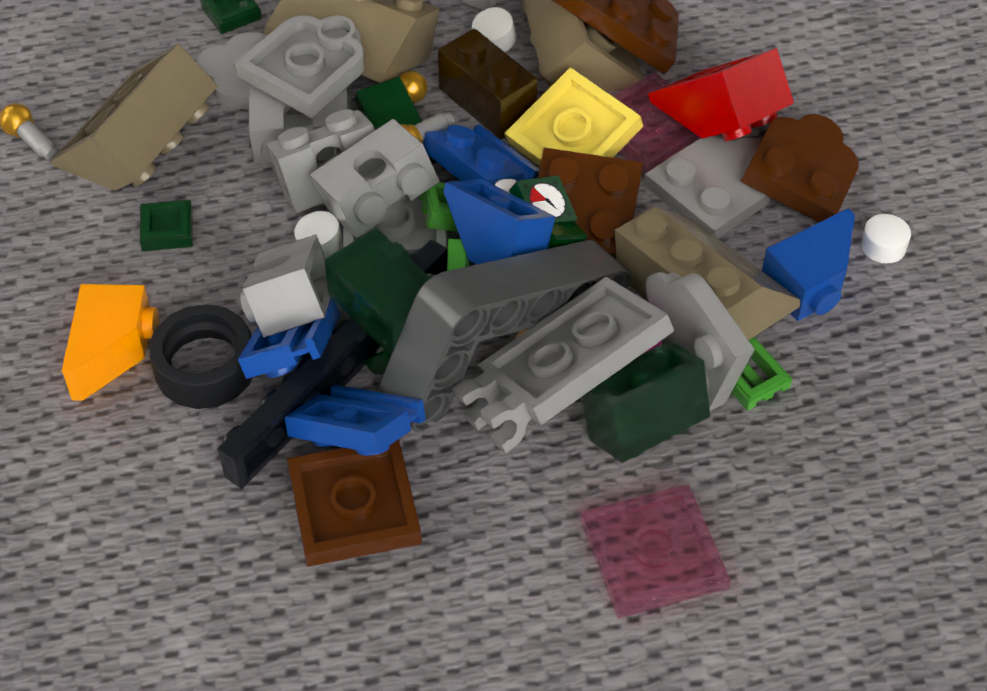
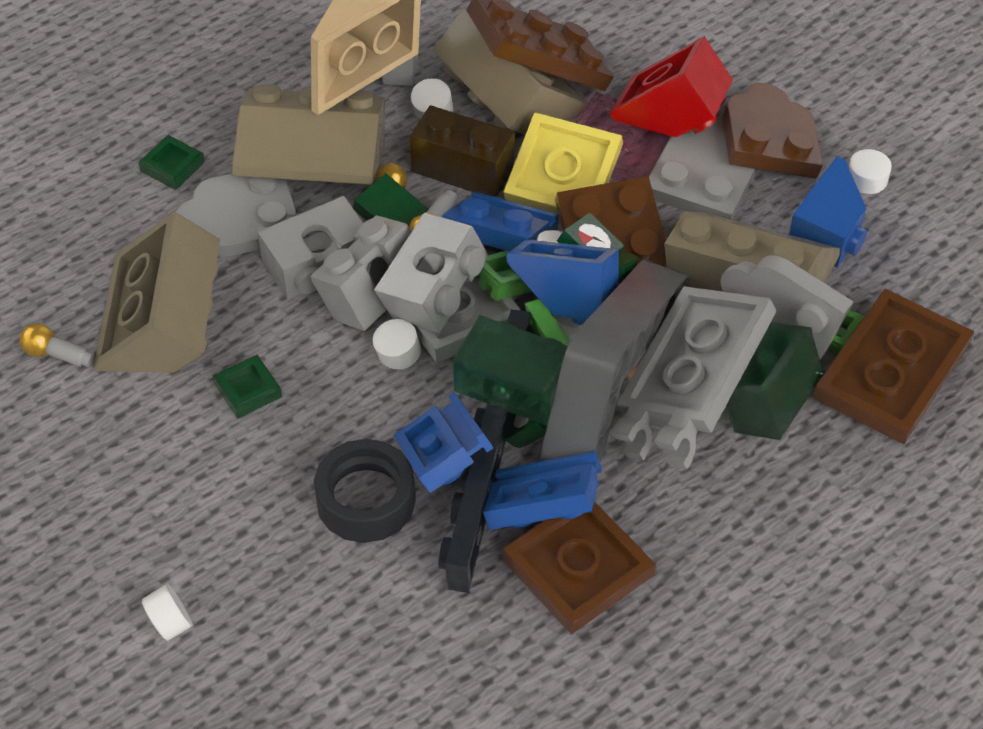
camera: 25 degrees left, 0 degrees up
(106, 335) = (268, 503): light orange slope -> none
(287, 287) = (415, 397): light grey brick -> none
(305, 61) = (302, 188): light grey plate -> none
(654, 551) = (842, 503): clear pink tile -> none
(789, 436) = (893, 365): none -> reddish brown plate

